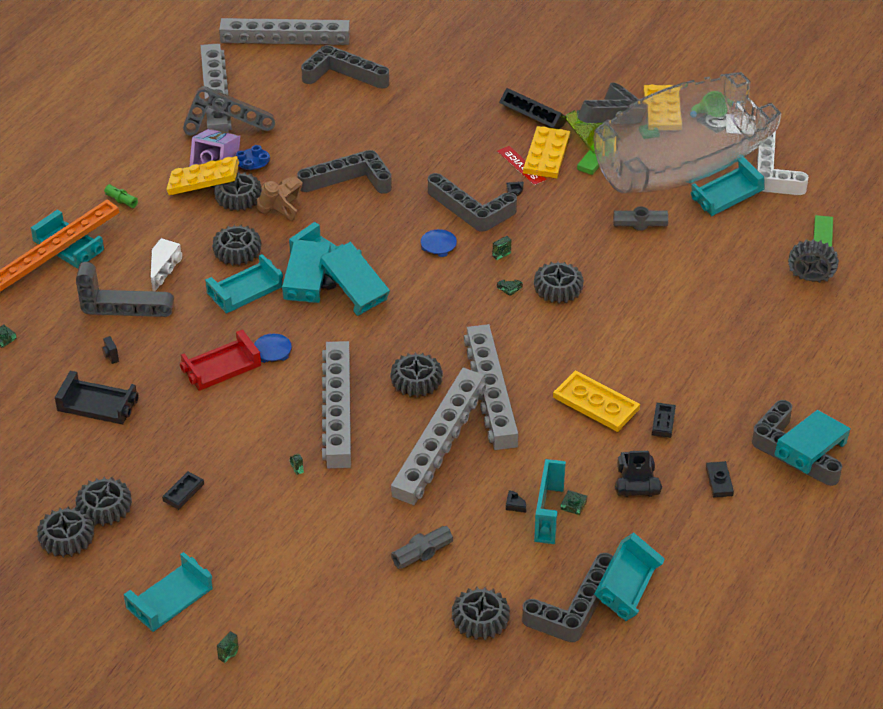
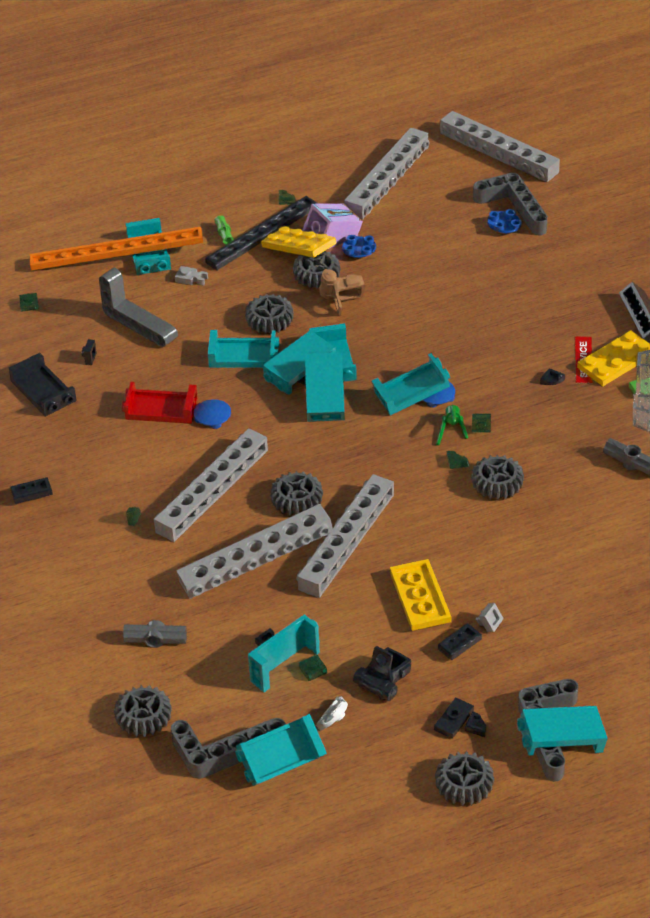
camera: 40 degrees right, 0 degrees up
(128, 247) = (189, 275): none -> light grey plate
(145, 148) = (286, 198): none -> clear green tile
(154, 185) = (257, 234): none -> black tile
(164, 258) = (198, 299): white slope -> none
(226, 109) = (369, 192): dark grey beam -> none
(347, 168) = (420, 290): dark grey beam -> none
(351, 87) = (504, 221): none -> blue dish
(419, 244) = (412, 386): none -> teal panel
(467, 208) = (500, 388): dark grey beam -> none
(474, 253) = (452, 416): none -> green plant
(630, 523) = (333, 713): none -> white plate
(666, 390) = (490, 617): none -> light grey tile
(740, 475) = (476, 725): none -> black tile
(778, 523) = (451, 774): none -> dark grey gear

